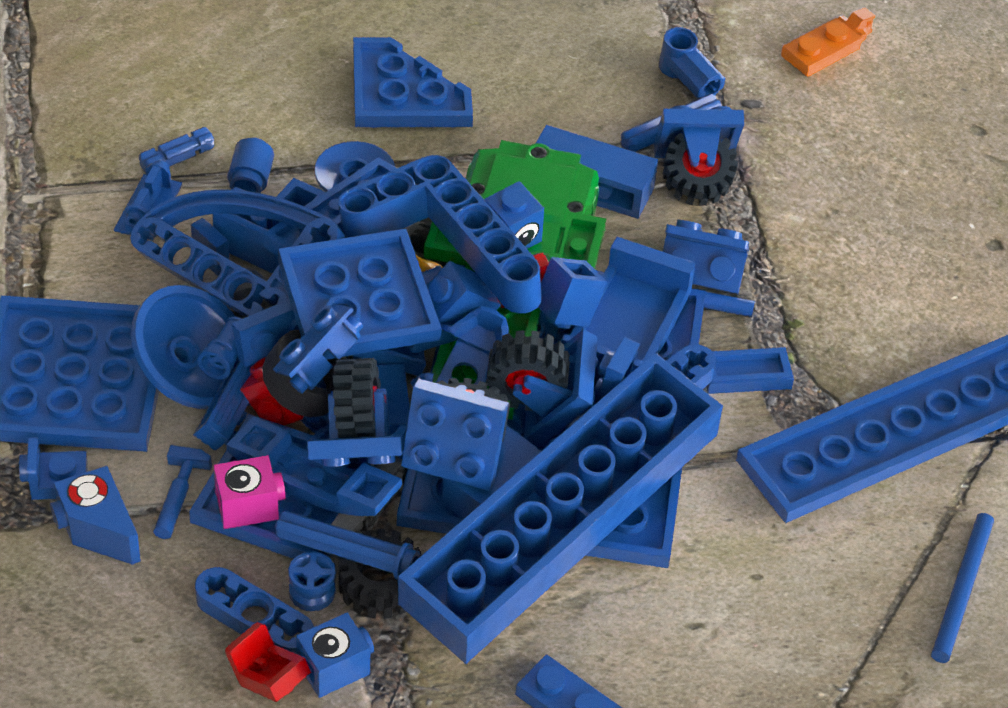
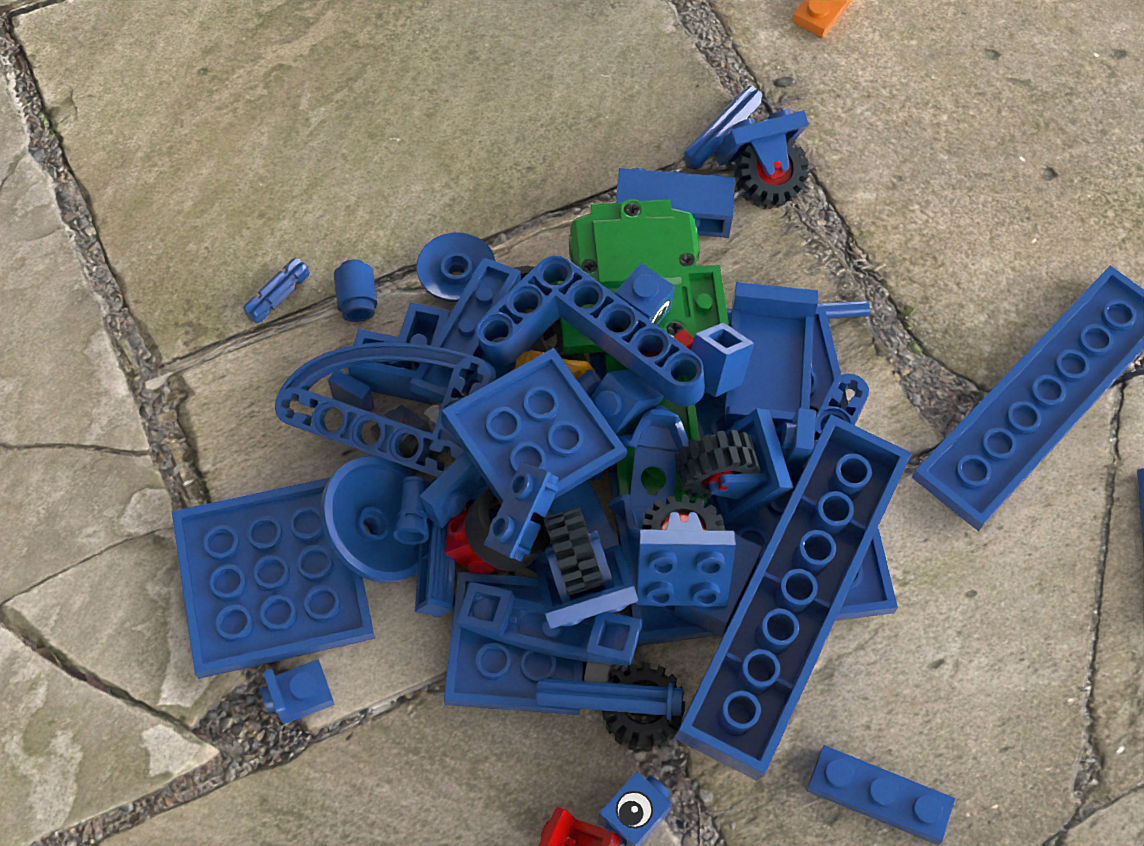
camera: 15 degrees left, 15 degrees up
(96, 515) = (356, 730): blue slope -> none
(151, 191) = (272, 357): blue hinge -> none
(188, 459) = (419, 669): blue piece -> none
(243, 596) = (534, 768): blue beam -> none
(248, 491) = (496, 668): dark pink brick -> none
(303, 574) = (582, 726): blue wheel -> none
(404, 90) = (466, 160): blue plate -> none
(684, 61) = (710, 54): blue piece -> none
(718, 256) = (814, 267): blue bracket -> none
(751, 371) = (891, 374): blue tile -> none

